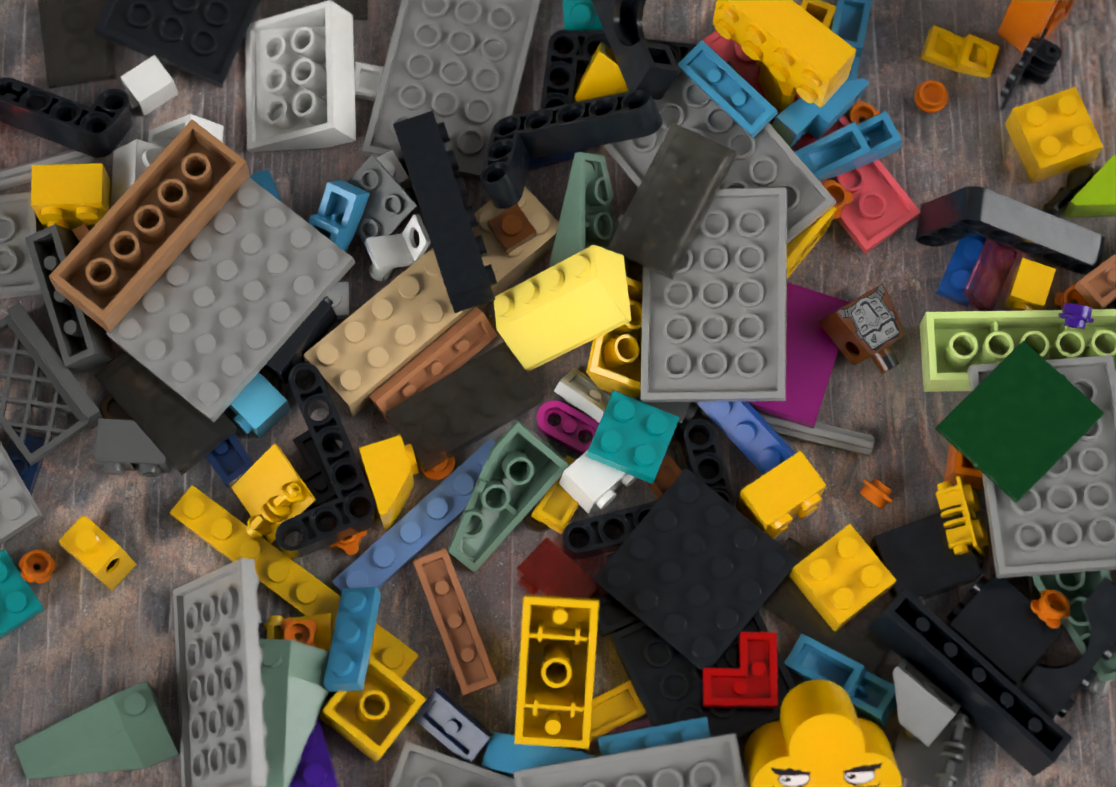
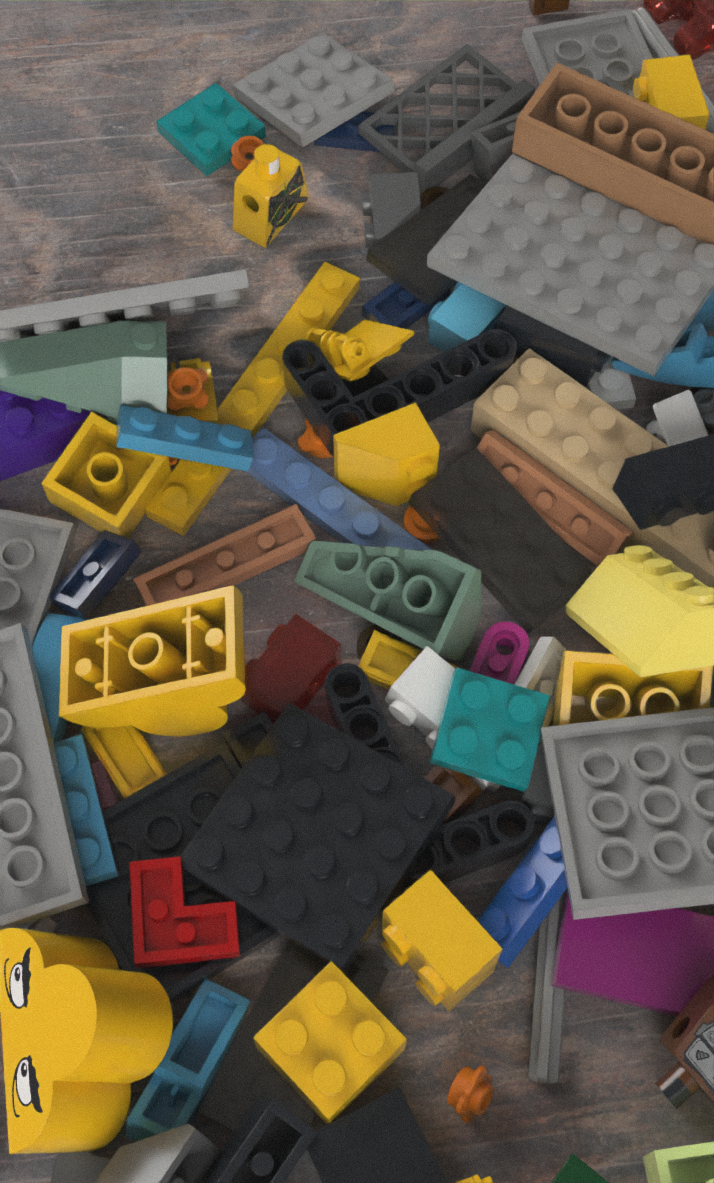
camera: 85 degrees right, 10 degrees down
(109, 736) = (69, 241): sand green wedge -> none

